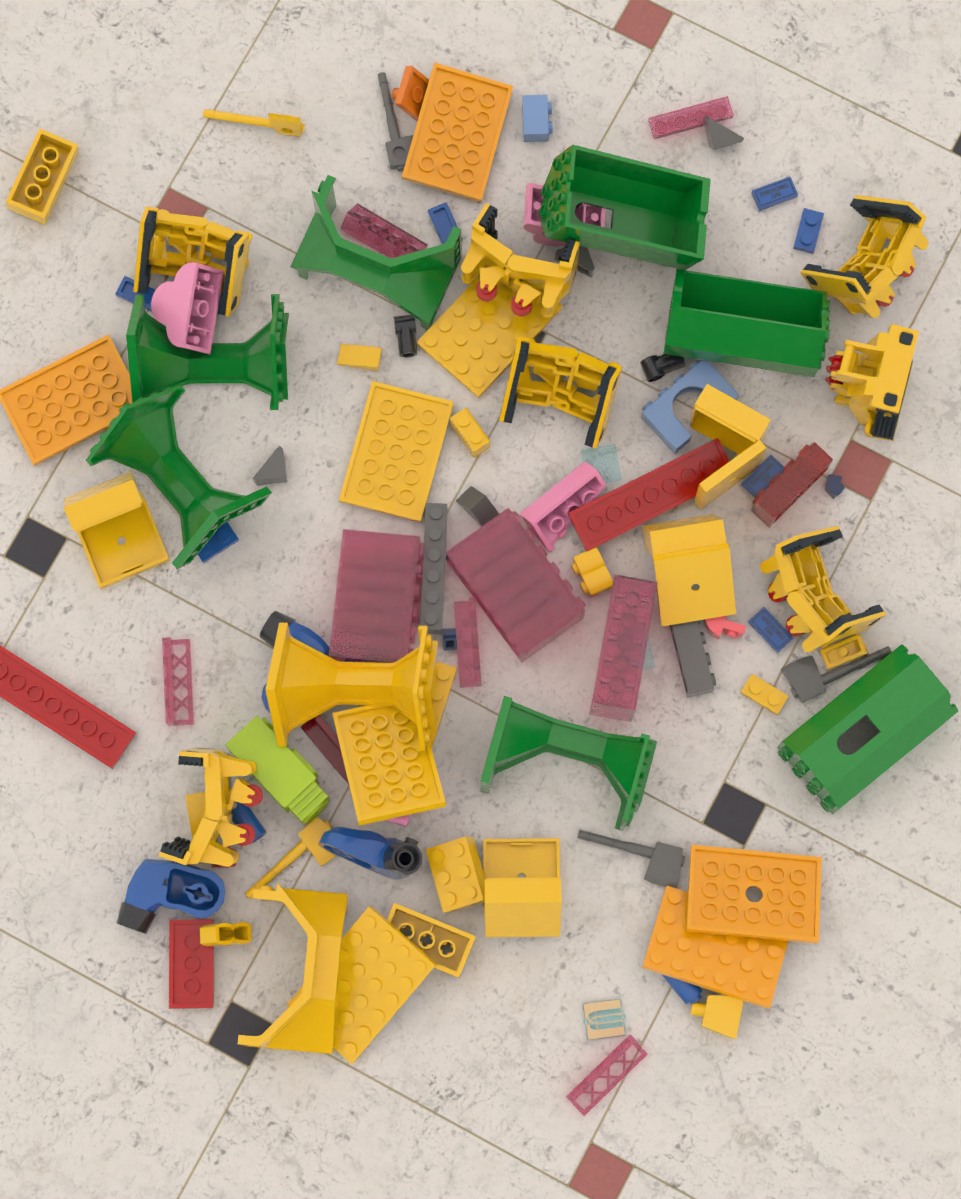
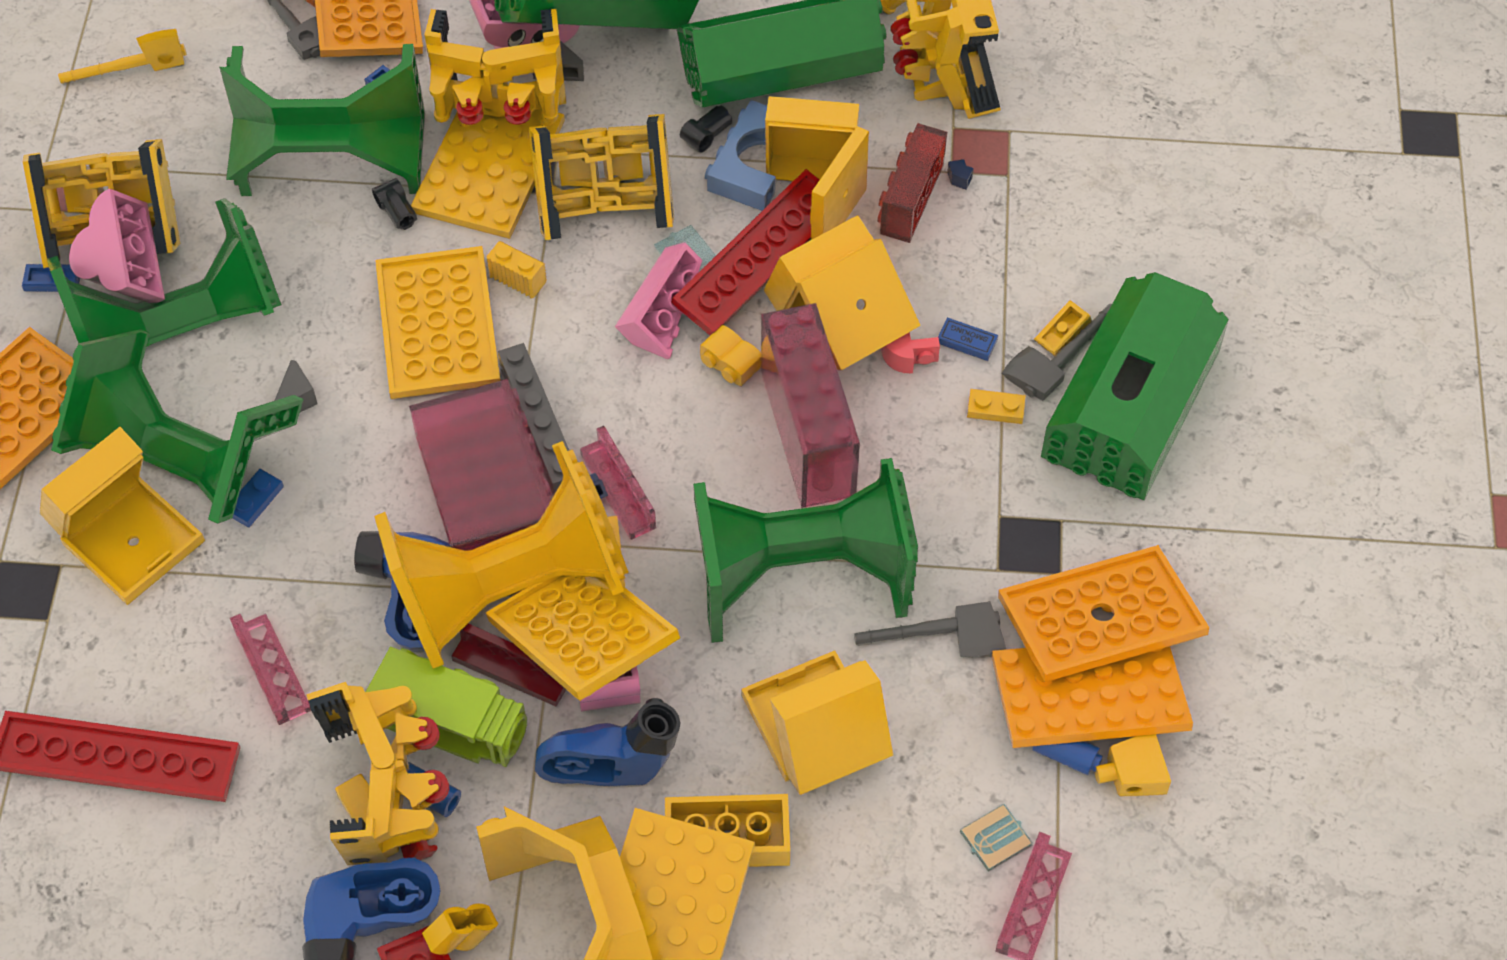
camera: 25 degrees left, 20 degrees down
(310, 838) = (521, 781): yellow piece -> none
(360, 356) = (350, 244): yellow slope -> none
(457, 874) = (730, 737): yellow brick -> none
(477, 506) = (563, 341): dark grey slope -> none
(516, 584) = (647, 396): clear pink brick -> none
(692, 658) = (891, 397): dark grey brick -> none
(762, 475) = (871, 194): blue tile -> none
(811, 592) = (981, 266): yellow container -> none

